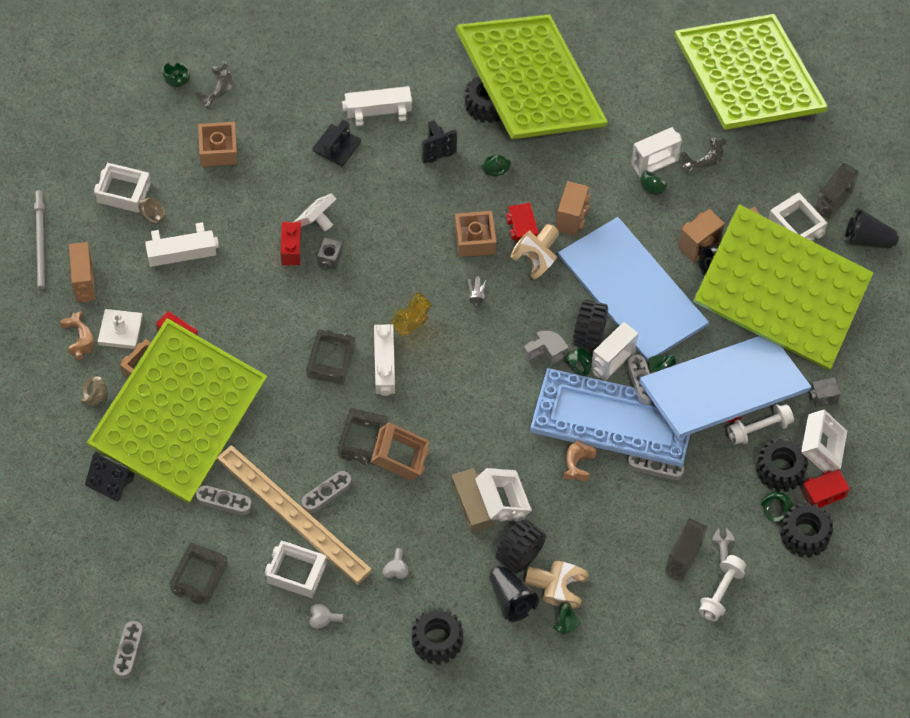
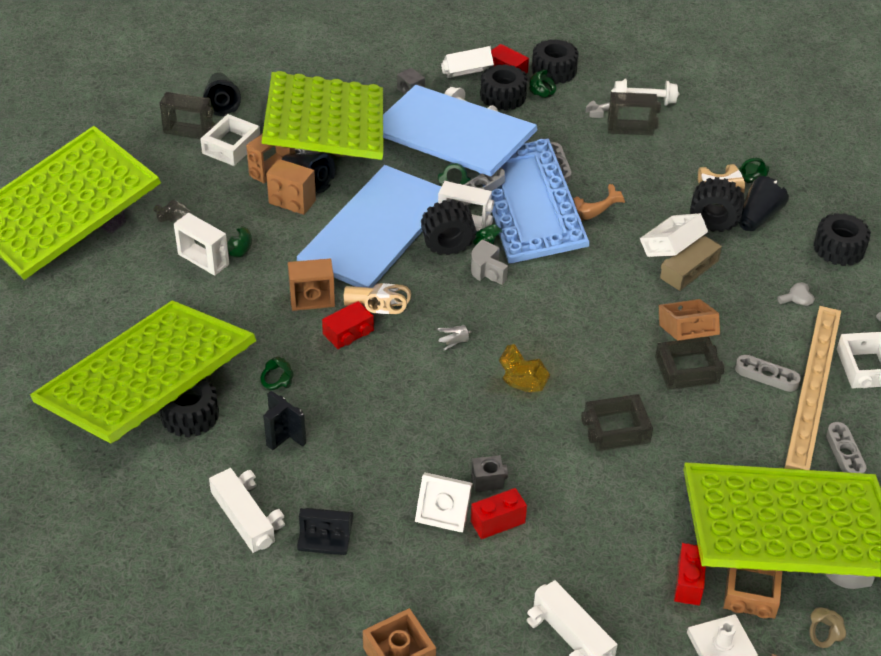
camera: 115 degrees left, 15 degrees down
(384, 359) = (587, 377): white brick -> none
(475, 234) = (387, 353): medium nougat brick -> none

